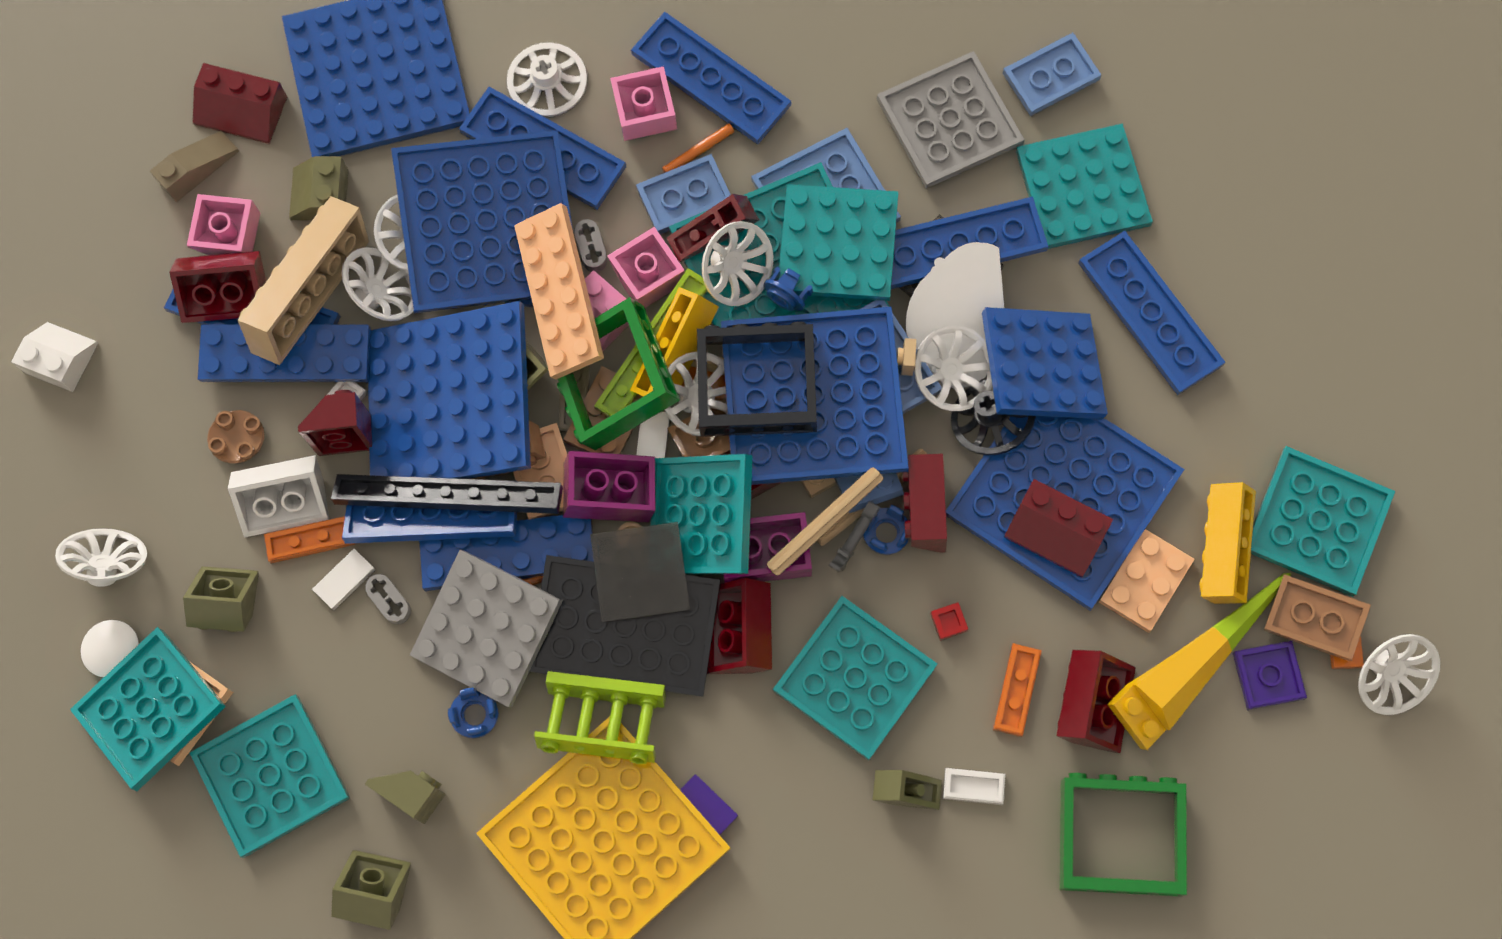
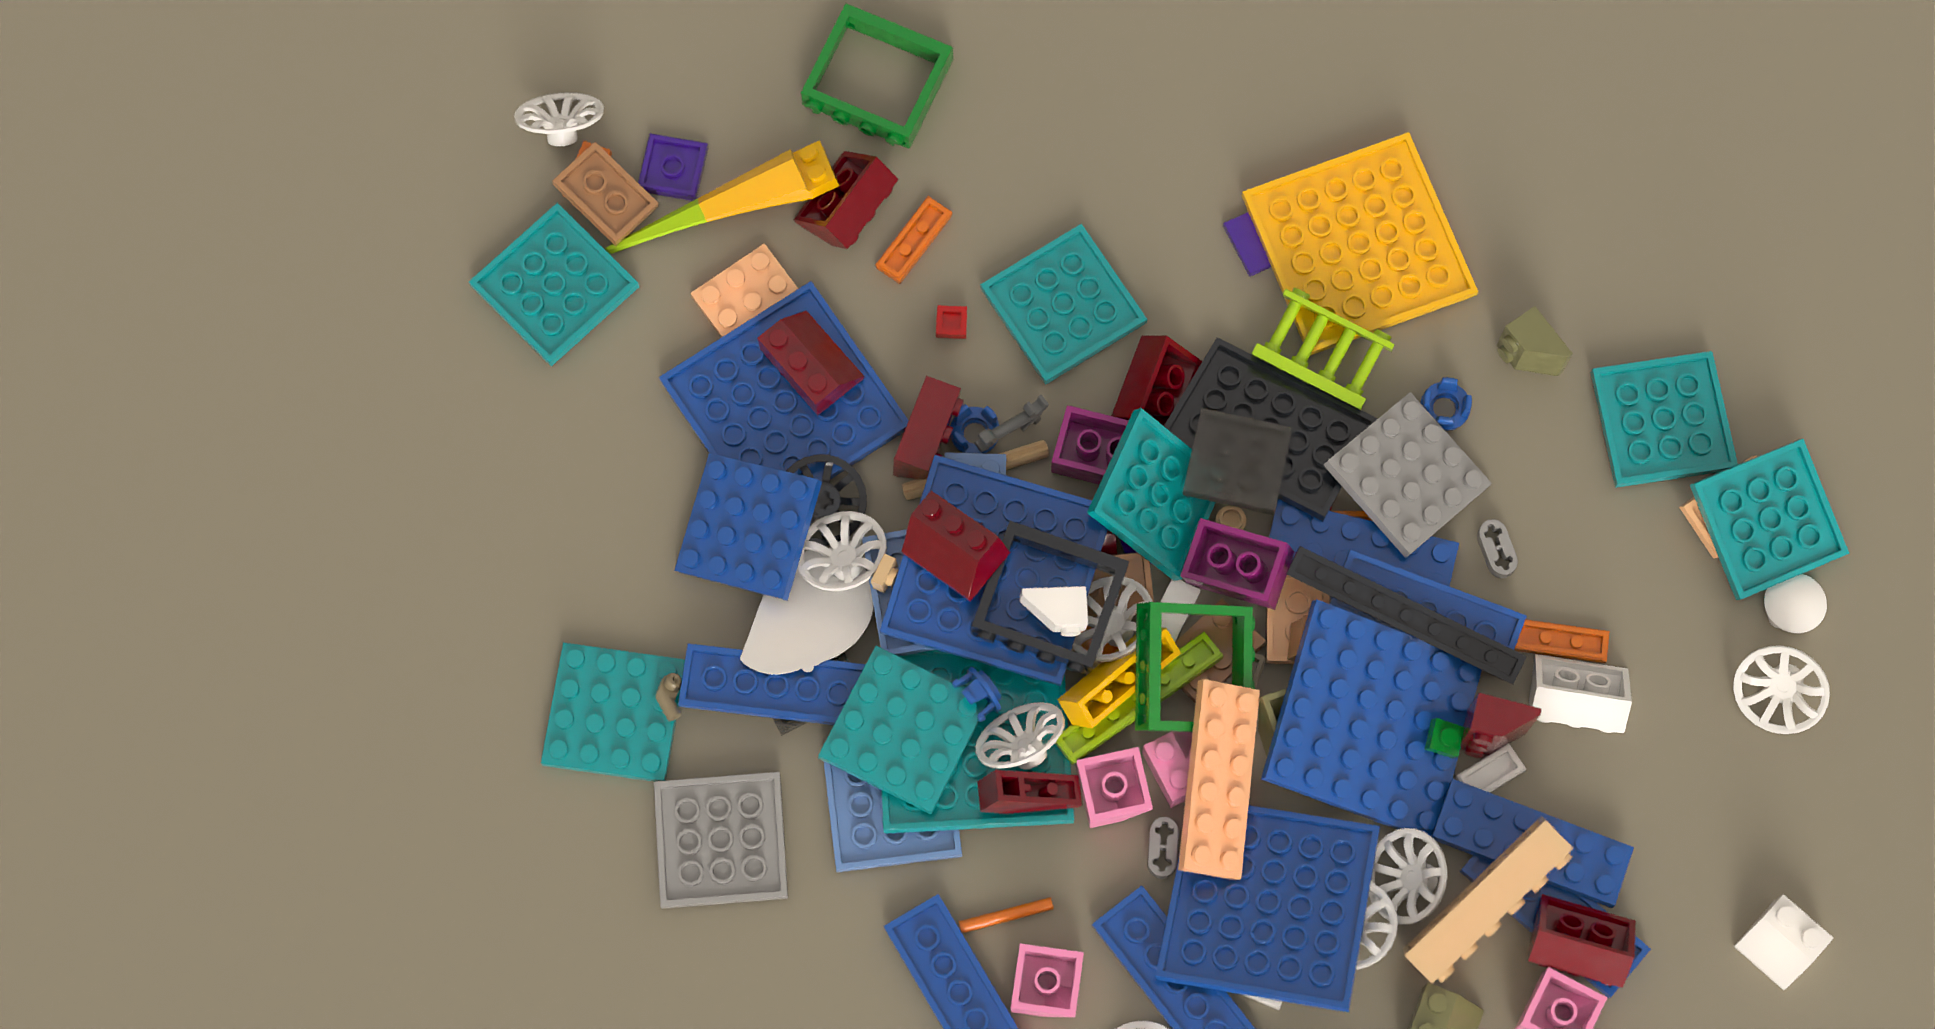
camera: 160 degrees left, 0 degrees up
(221, 599) = (1667, 608): olive slope -> none
(235, 436) = (1609, 777): medium nougat dish -> none
(343, 579) = (1536, 585): white tile -> none
(370, 889) = (1593, 279): olive slope -> none
(382, 407) = (1444, 738): none -> green plate
(682, 192) = (1041, 864): medium blue plate -> none
(743, 357) = (1058, 608): none -> white slope
(825, 521) = (1037, 436): tan axle -> none
(856, 384) = (952, 546): none -> dark red slope
(907, 789) = (1057, 185): olive slope -> none
(974, 786) = (992, 170): white tile -> none
(1045, 203) = (667, 694): none -> dark tan arm
(1051, 74) = (588, 849): medium blue plate -> none
(1151, 312) = (612, 549): blue plate -> none
(1228, 543) = (653, 290): yellow brick -> none

